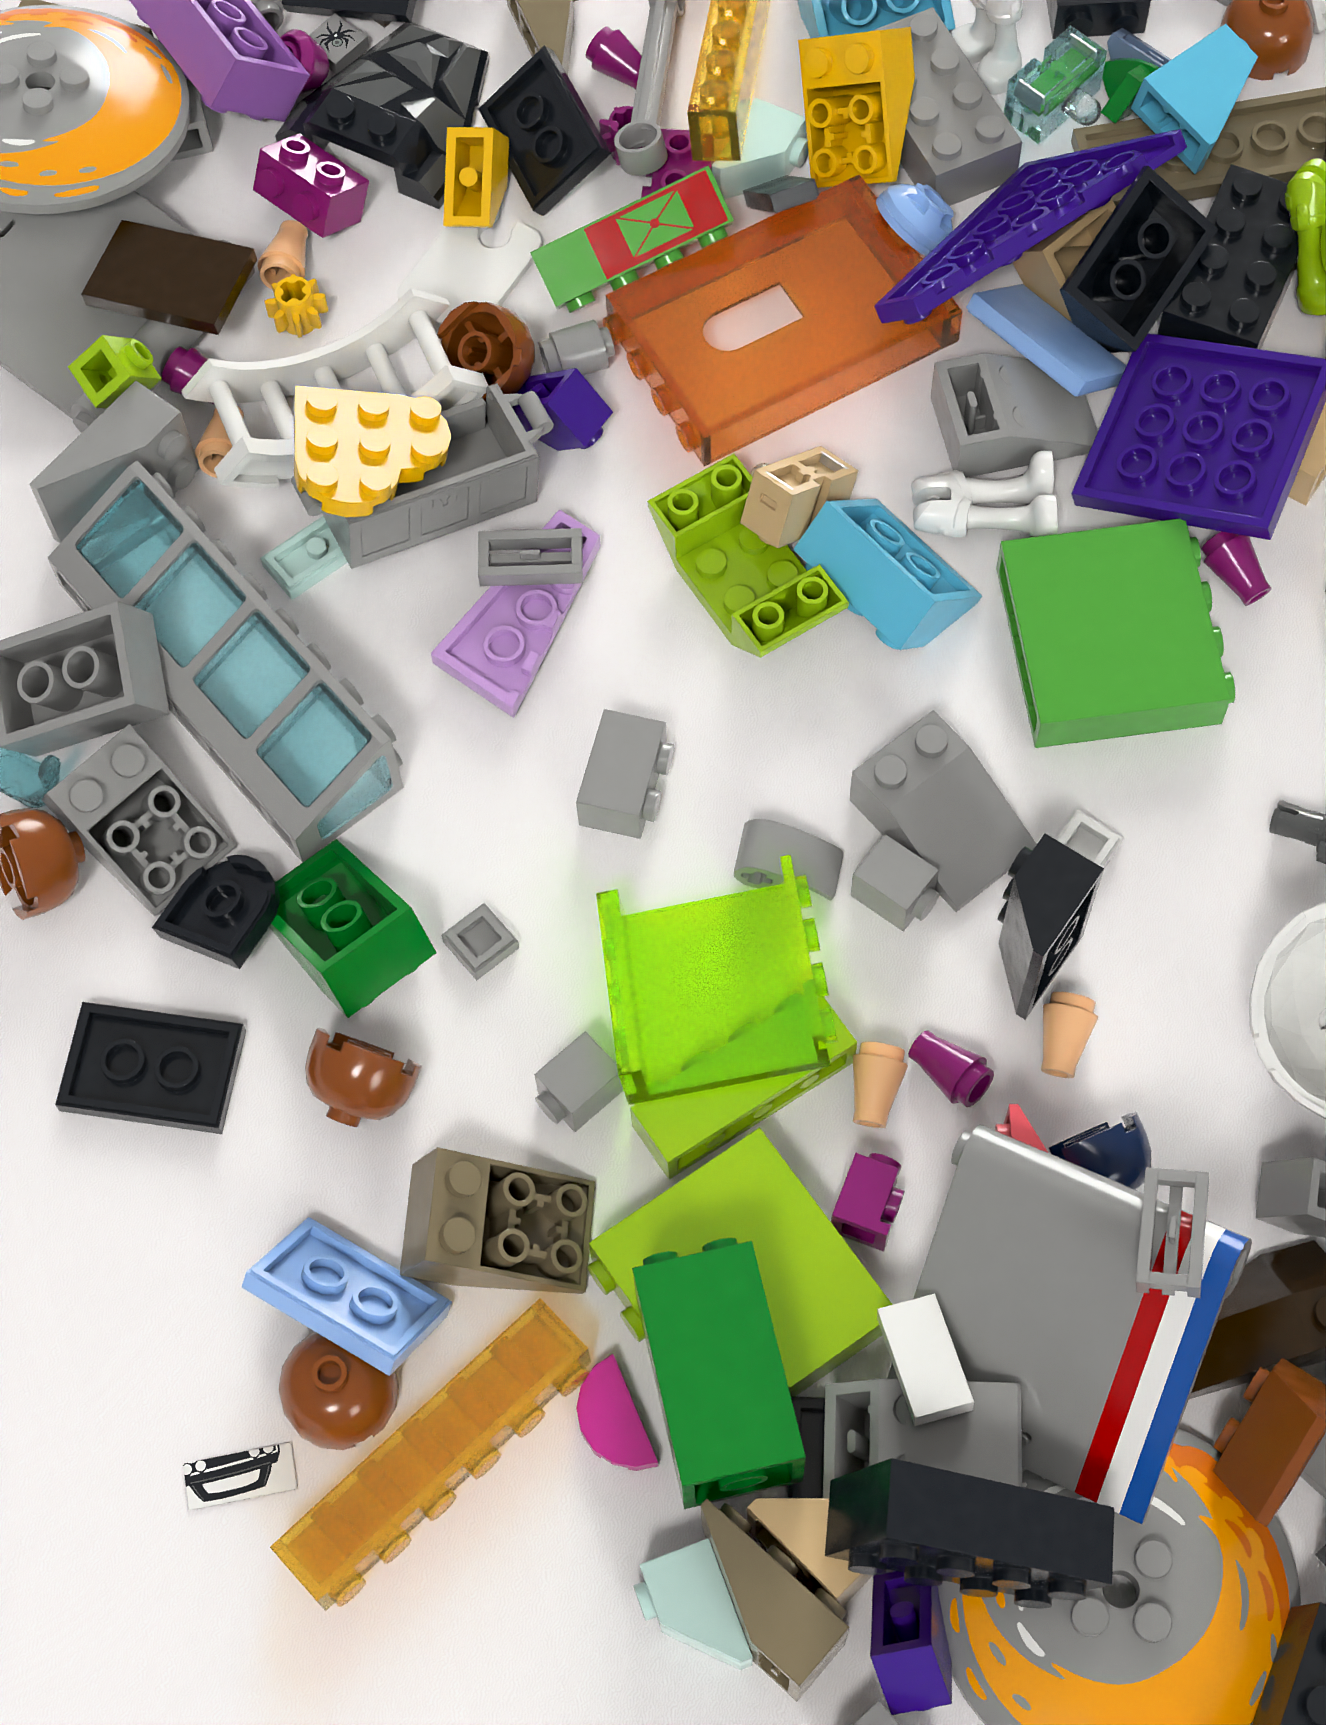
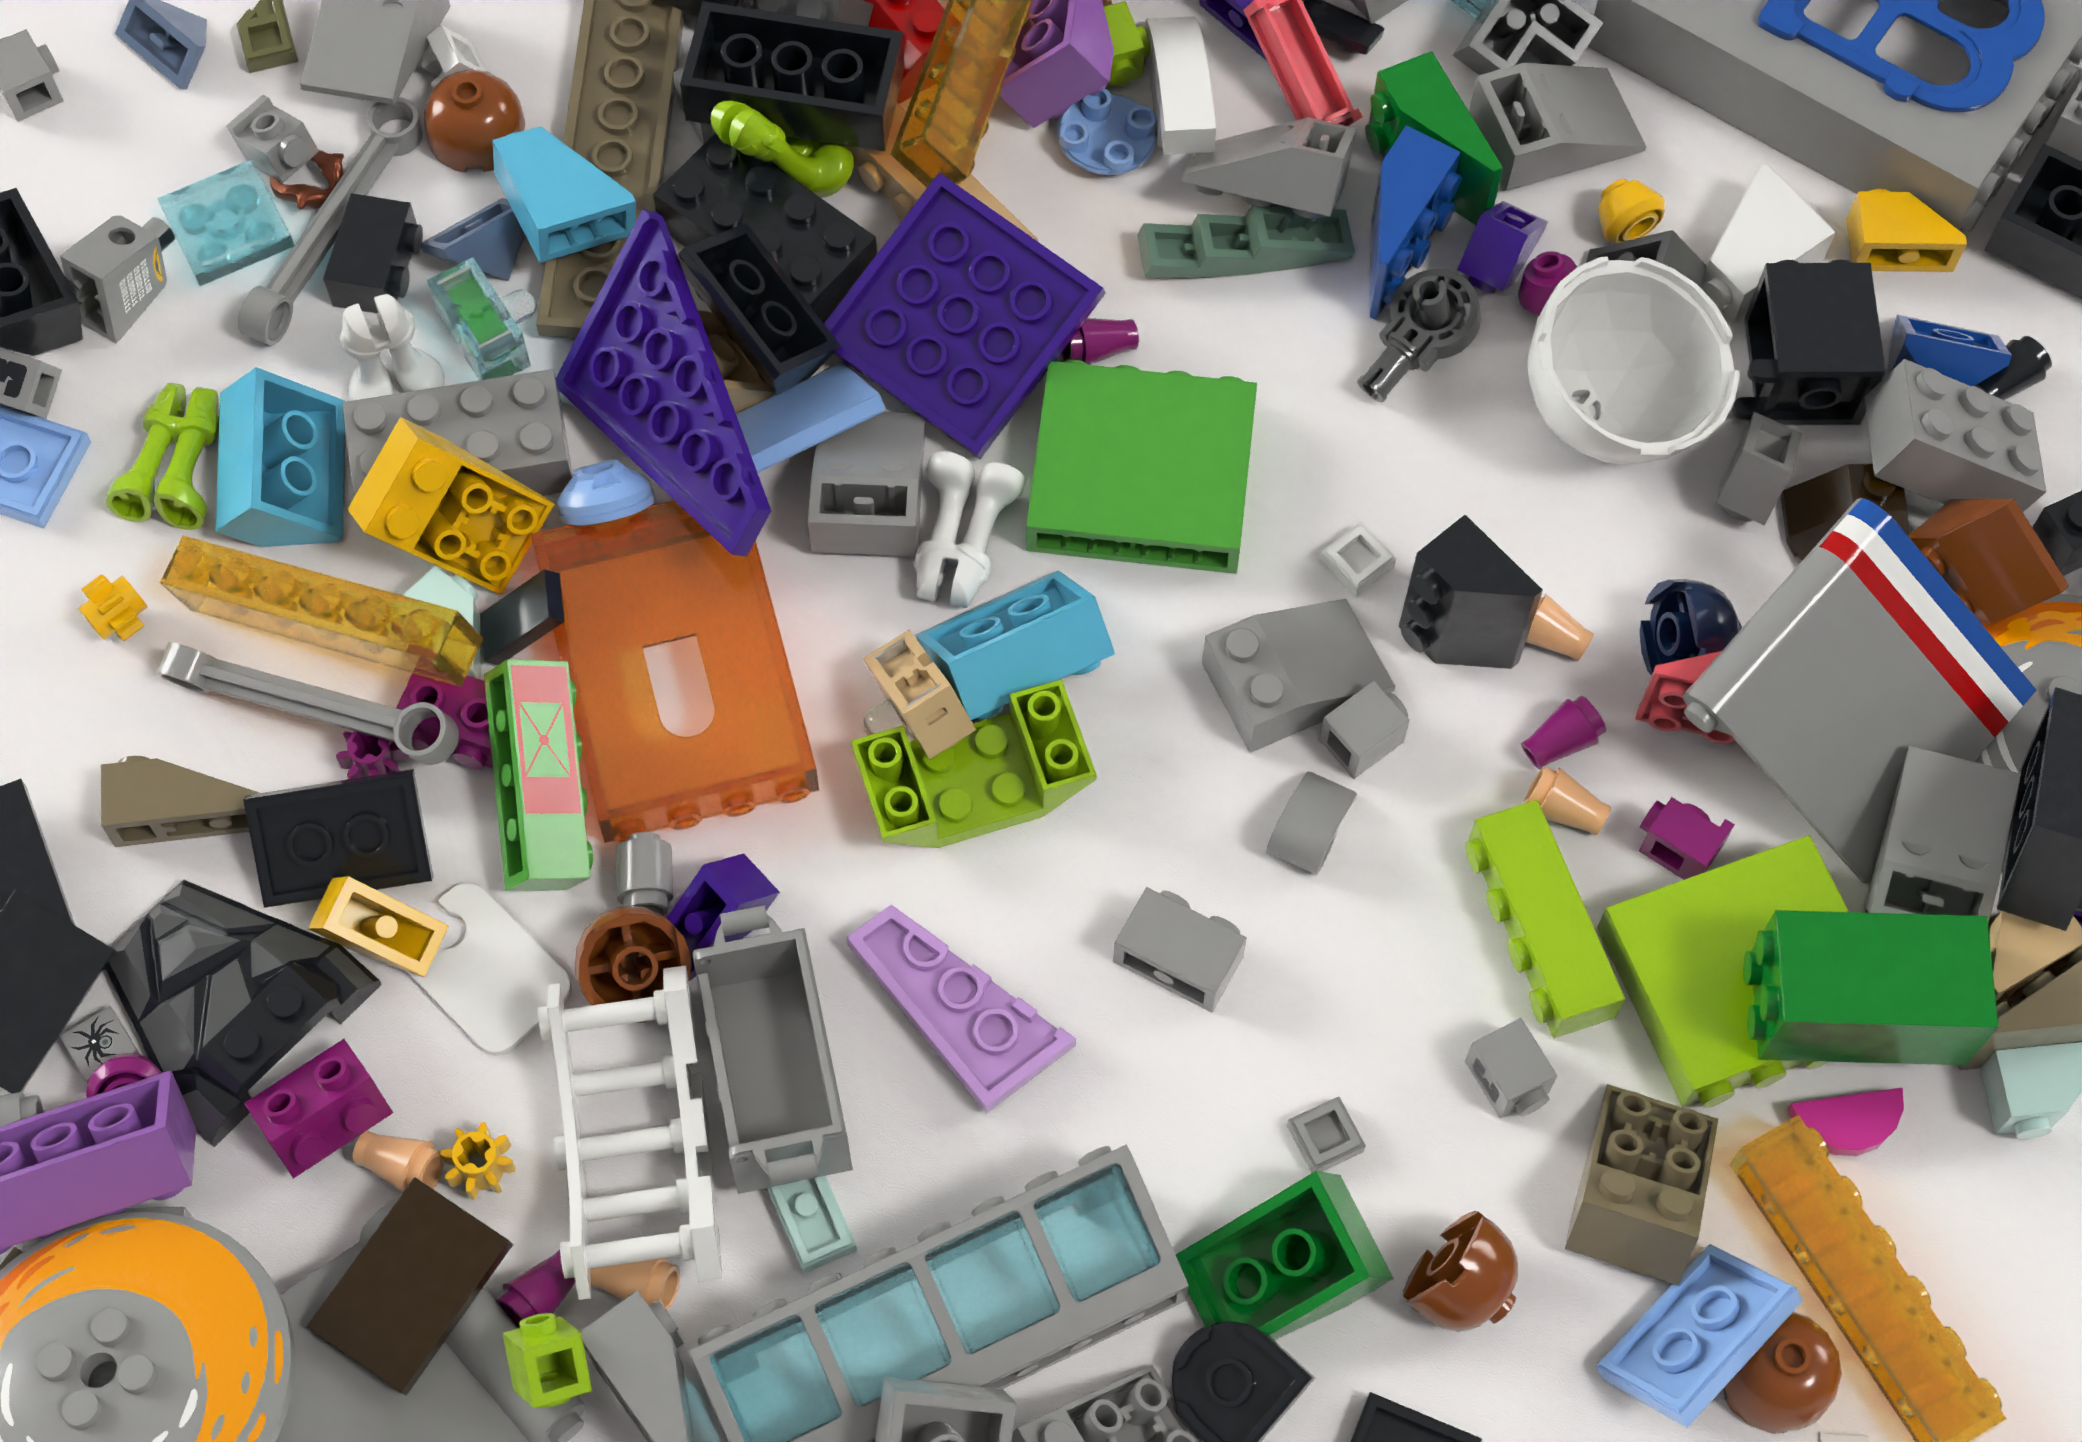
camera: 80 degrees left, 0 degrees up
(362, 444) = (750, 1099): plate -> none
(530, 566) = (893, 1020): light grey tile -> none
(614, 56) = (258, 740): magenta cone -> none
(715, 990) = (1450, 908): clear neon green panel -> none
(925, 1359) = (1878, 813): white tile -> none
(1122, 81) = (509, 258): green tile -> none
(1169, 1280) = (1844, 572): light grey tile -> none

